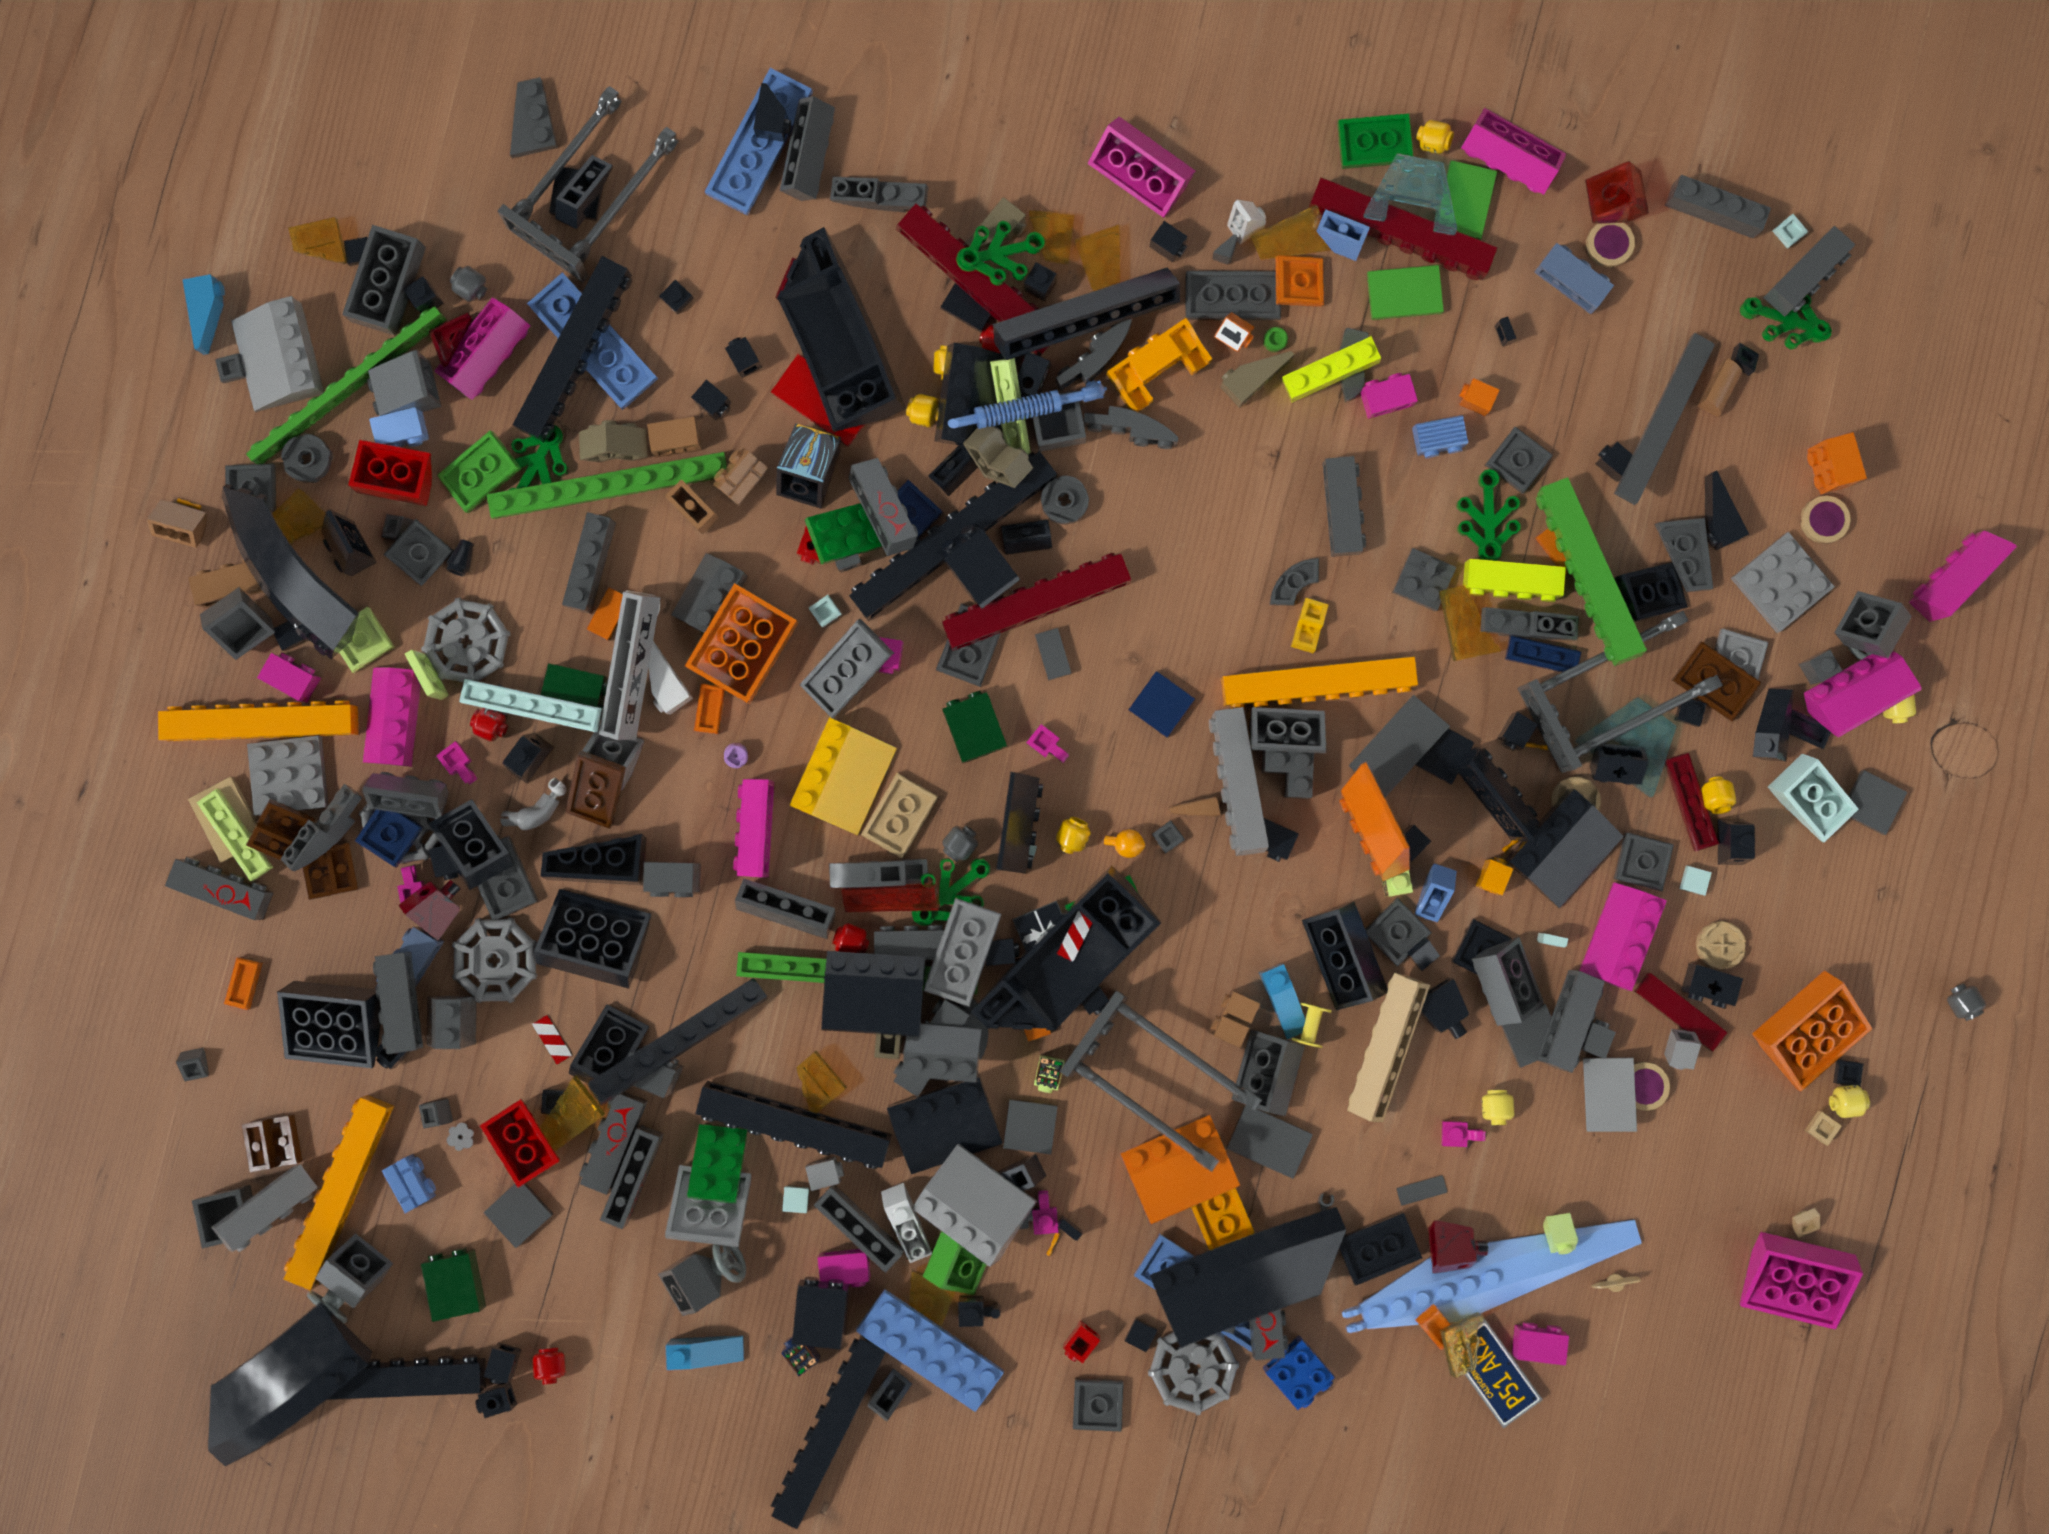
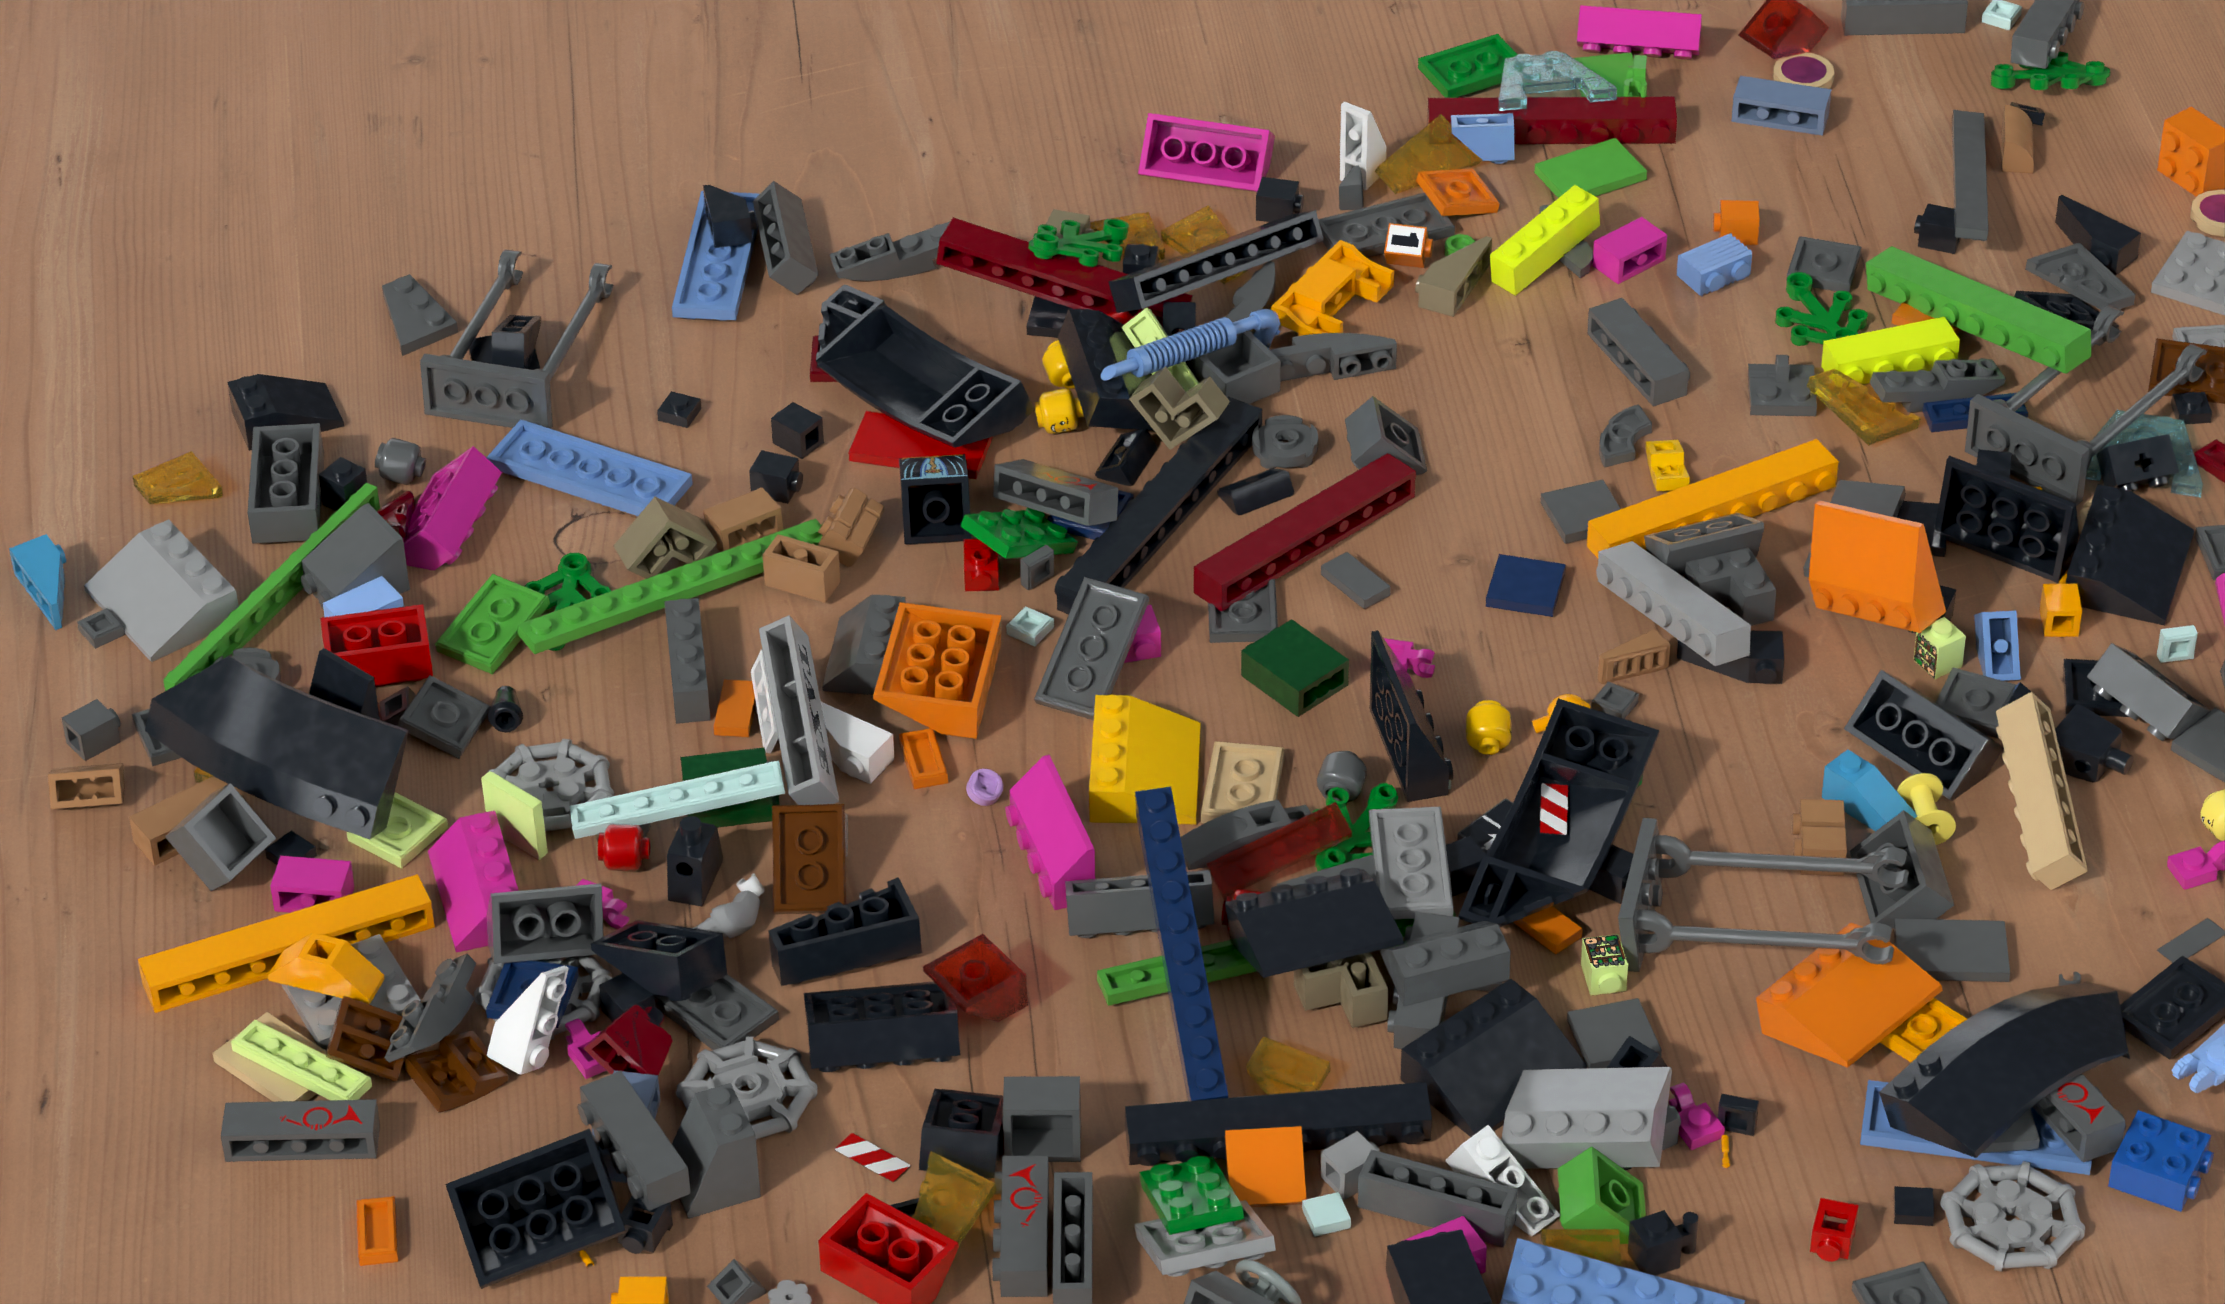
camera: 25 degrees left, 45 degrees down
(194, 473) = (91, 729): none -> dark grey brick
(266, 773) = (327, 967): none -> light orange slope
(354, 250) = (233, 479): black tile -> none
(371, 873) = (525, 1029): none -> white slope
(409, 192) = (281, 401): none -> black slope
(573, 349) = (572, 470): black brick -> none
(657, 939) = (980, 979): none -> clear red slope
(671, 877) = (962, 908): dark grey piece -> none
(676, 1041) = (1063, 1053): black plate -> none
(770, 1158) = (1266, 1165): none -> orange tile
(783, 981) = (1180, 945): none -> dark blue brick
(978, 565) = (1208, 504): black slope -> none
(1129, 531) = (1380, 430): none -> dark grey slope
(1232, 648) = (1575, 506): none -> dark grey tile
(1435, 137) = (1540, 39): yellow head -> none
(1481, 213) = (1636, 78): none -> bright green plate
(1505, 331) = (1732, 165): black tile -> none

